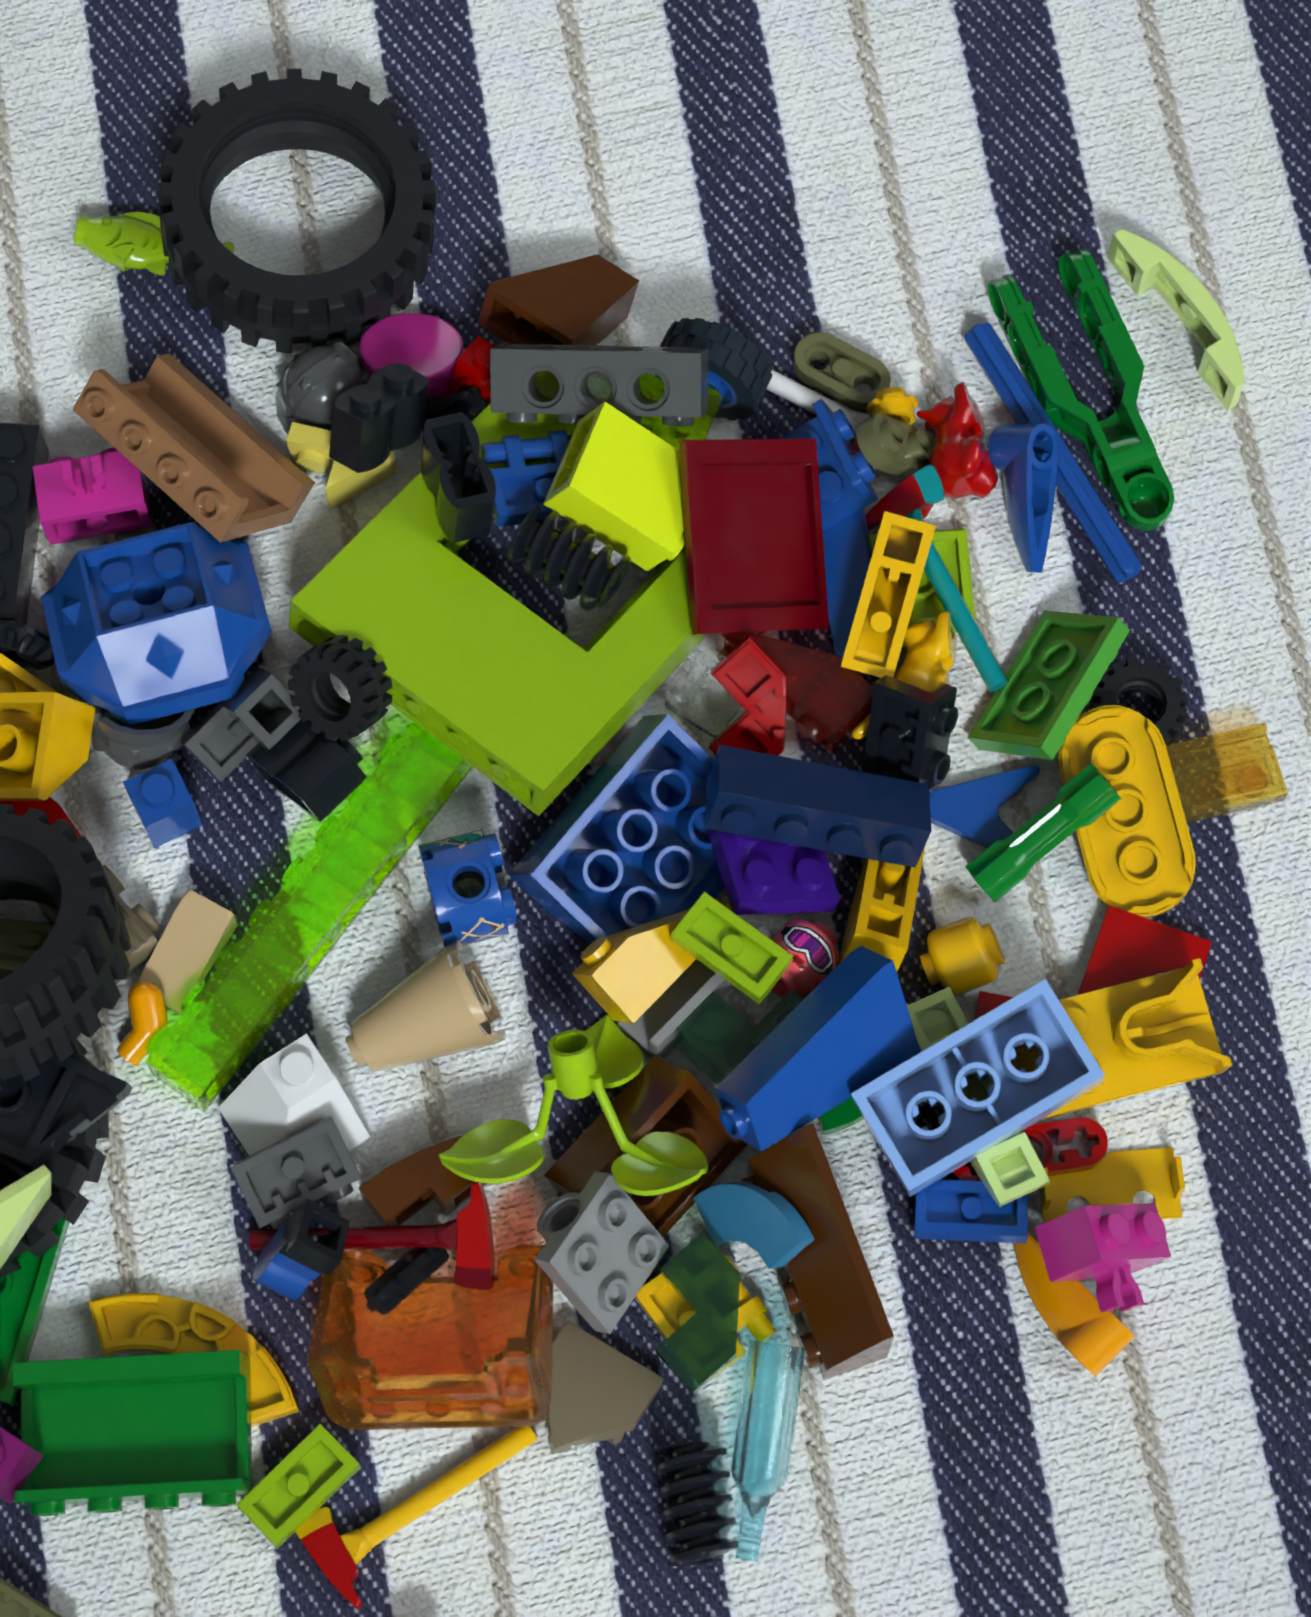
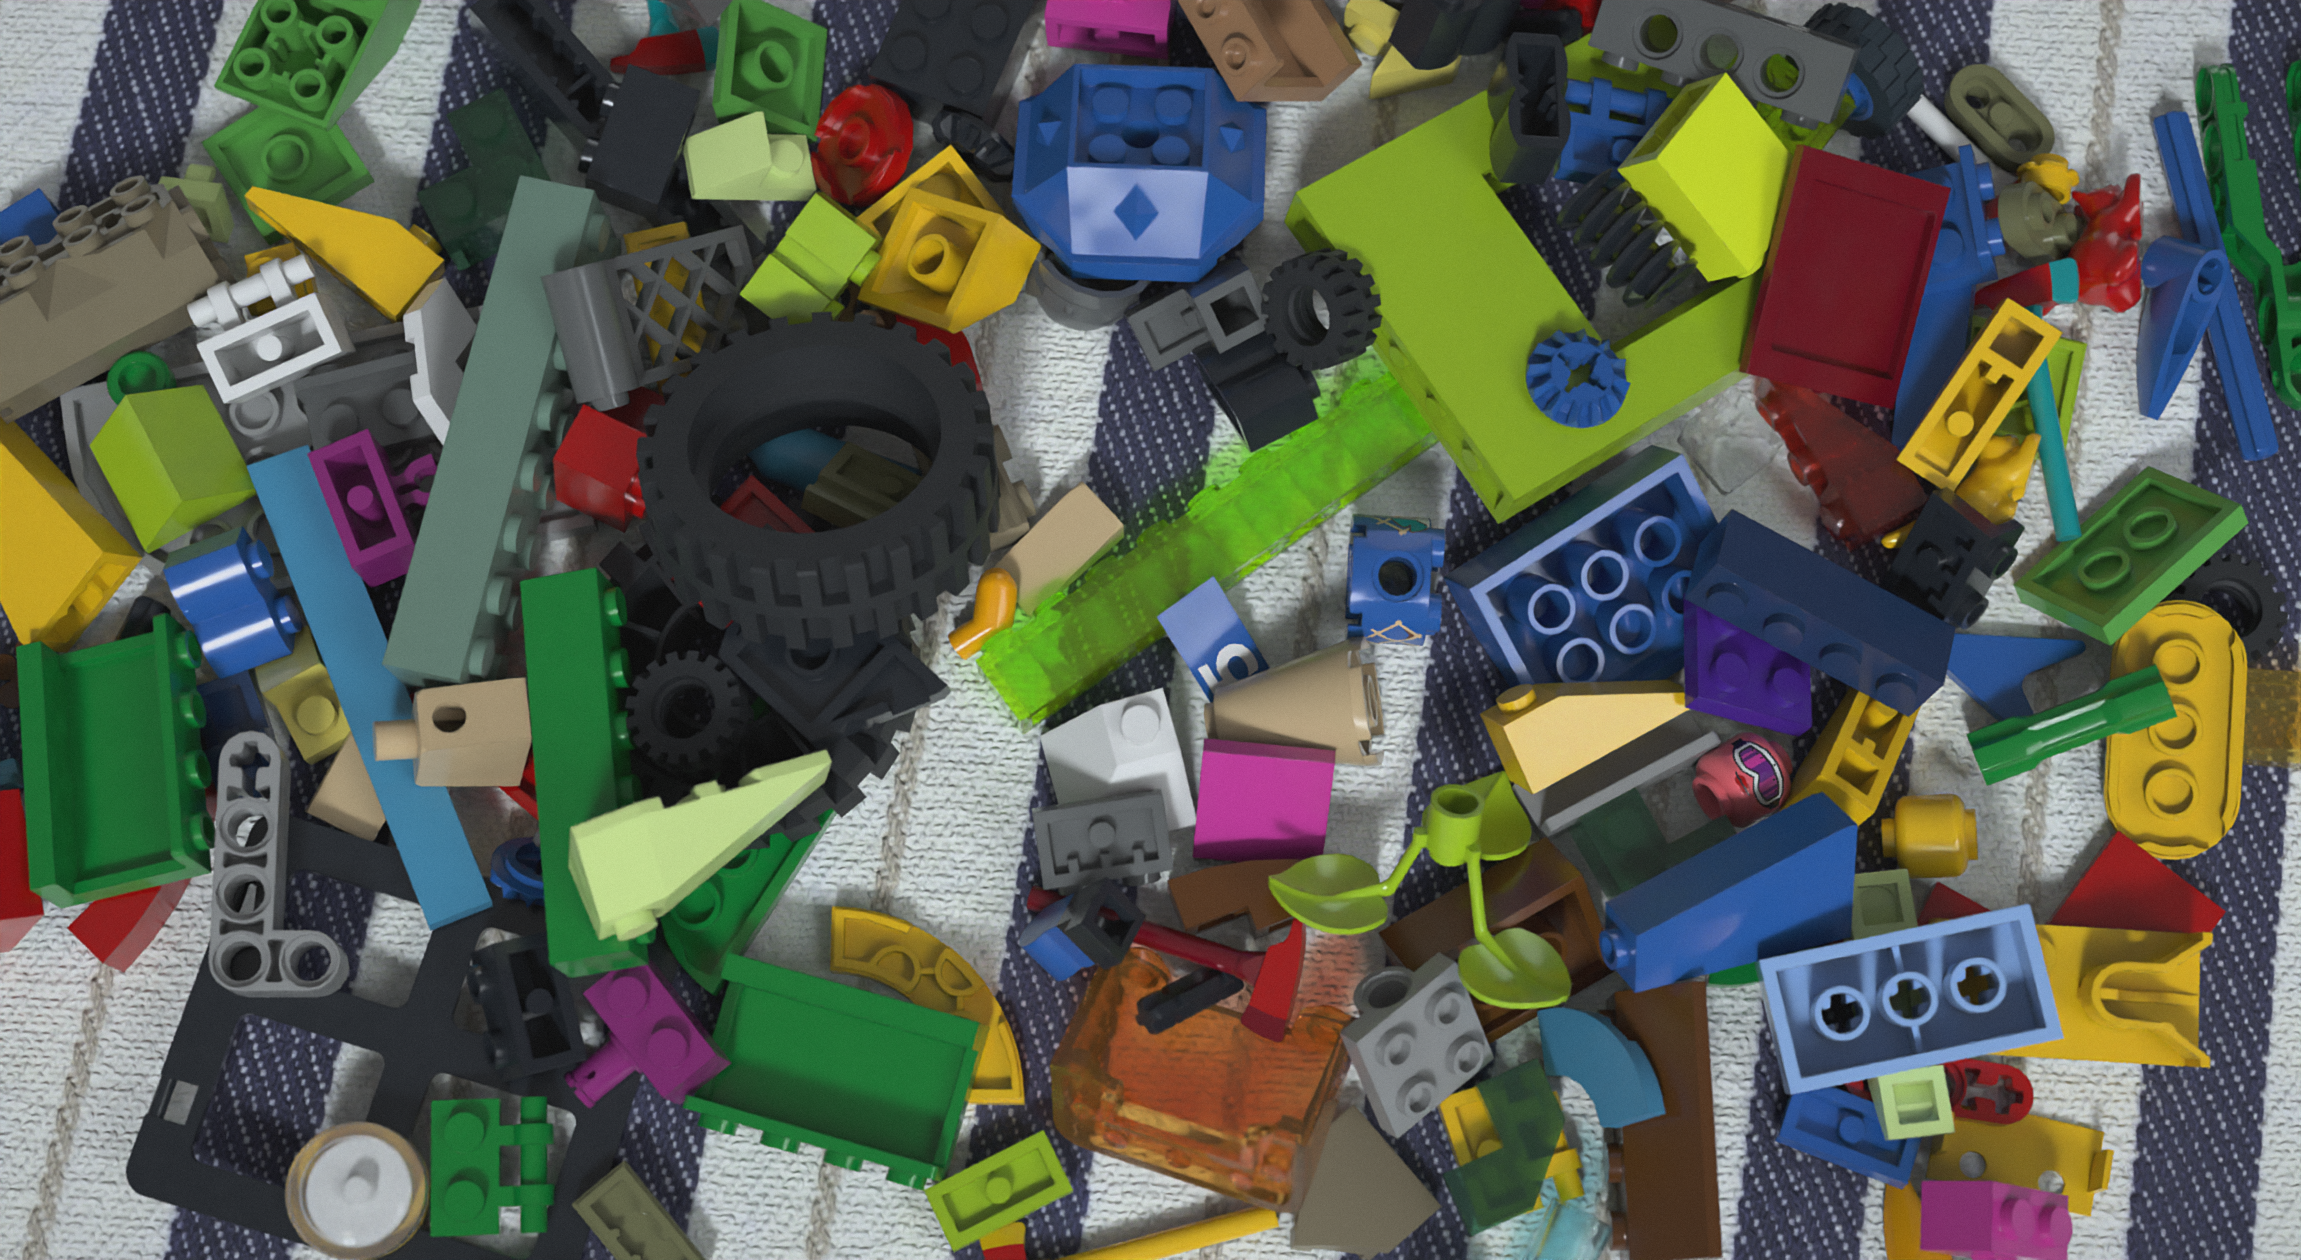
camera: 20 degrees right, 5 degrees up
(163, 803) = (1083, 375): blue brick -> none
(334, 982) = (1211, 638): none -> sticker
(415, 1099) = (1262, 801): none -> dark pink tile
(575, 698) = (1583, 405): none -> blue gear
(731, 948) = (1672, 746): lime plate -> none
(761, 690) = (1796, 458): red tile -> none

